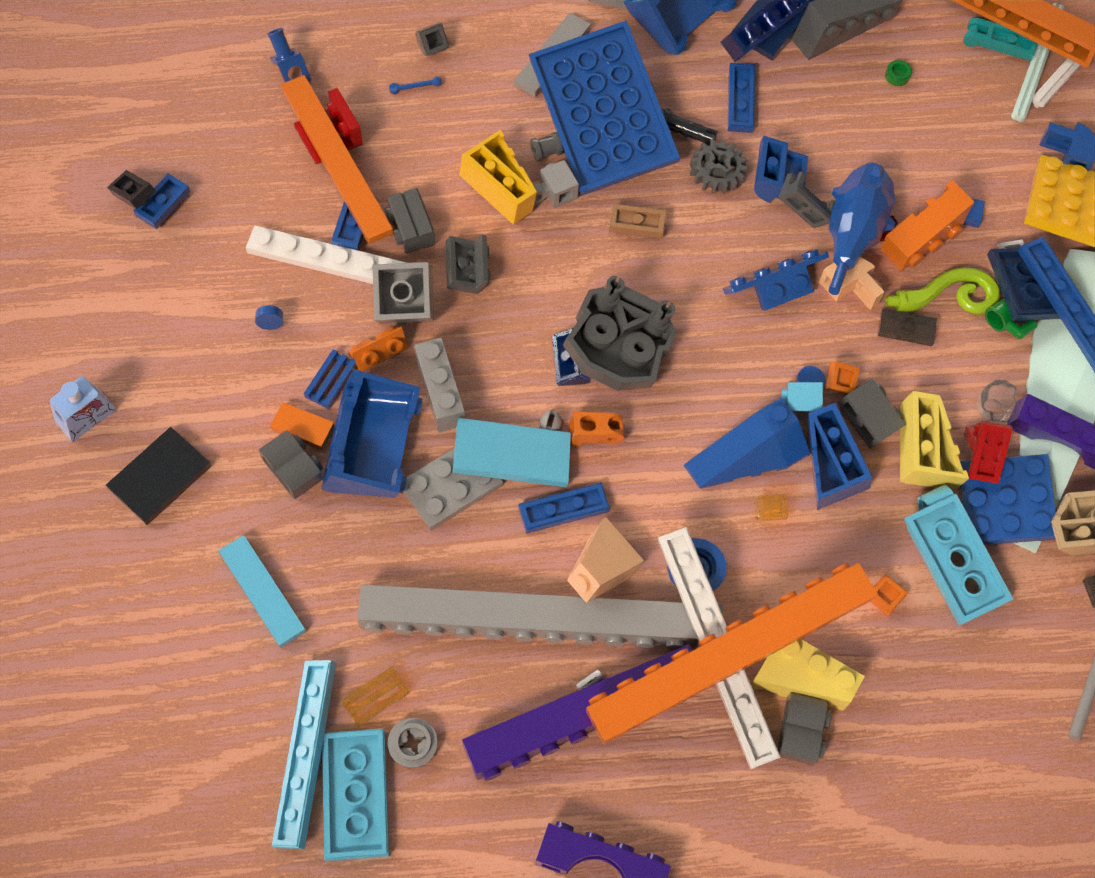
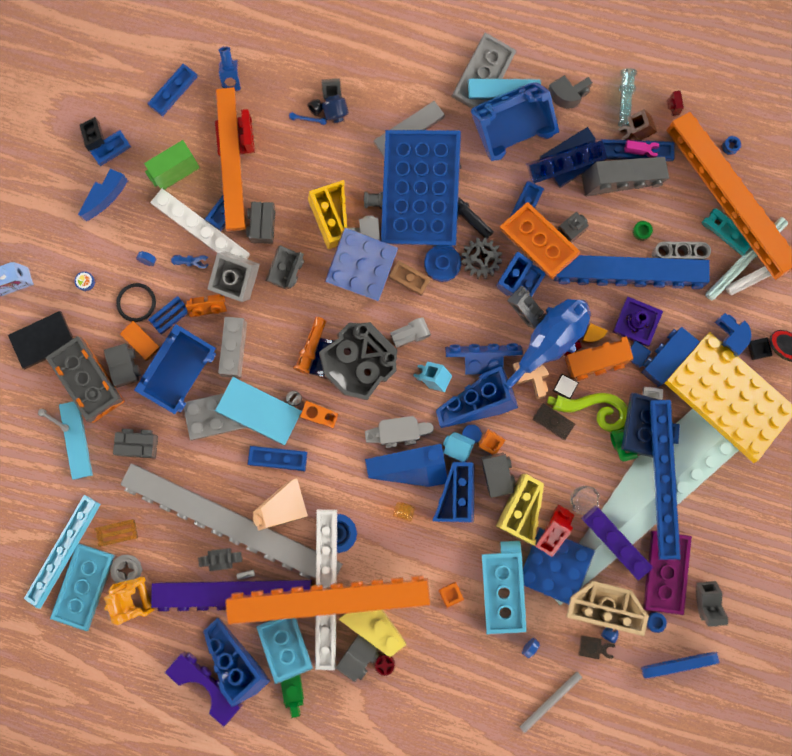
camera: 30 degrees right, 15 degrees up
(175, 259) = (103, 195): none -> blue slope
(191, 377) = (84, 281): none -> tile
(197, 573) = (42, 412): none -> light grey hinge
(219, 108) = (172, 90): none -> blue tile
(247, 499) = (85, 379): none -> dark grey piece
(260, 188) = (171, 166): none -> bright green brick
(269, 357) = (131, 286): none -> black tyre
(331, 301) = (189, 261): none -> blue piece
(354, 561) = (135, 444): none -> dark grey brick
(416, 65) = (315, 107): none -> black hinge
(426, 784) = (120, 603): none -> light orange piece
(448, 58) = (335, 108): none -> dark blue head
(544, 358) = (307, 353): none -> orange pin
(548, 665) = (220, 559): none -> dark grey gear
(568, 221) = (361, 264): none -> plate
(637, 814) = (236, 669): none -> blue wedge
(670, 191) = (442, 263): none -> blue tile
(675, 280) = (414, 331): none -> light grey piece
(693, 756) = (284, 648): none -> medium azure tile
(714, 409) = (398, 430): none -> light grey hinge
(727, 810) = (293, 695): none -> green hinge
(728, 321) = (434, 376): none -> medium azure brick
(783, 116) = (540, 240): none -> orange plate
(807, 327) = (478, 401): none -> blue wedge
(813, 94) = (573, 226): none -> dark grey brick
(849, 718) = (382, 667): none -> dark red wheel
(899, 278) = (565, 386): none -> white tile
(904, 206) = (594, 333): none -> light orange tile
(909, 119) = (636, 271): none -> blue brick
(947, 166) = (647, 315): none -> dark purple plate
(958, 78) = (688, 247): none -> light grey beam
(1009, 198) = (669, 356): none -> blue brick
(1029, 619) = (531, 648): none -> blue tile

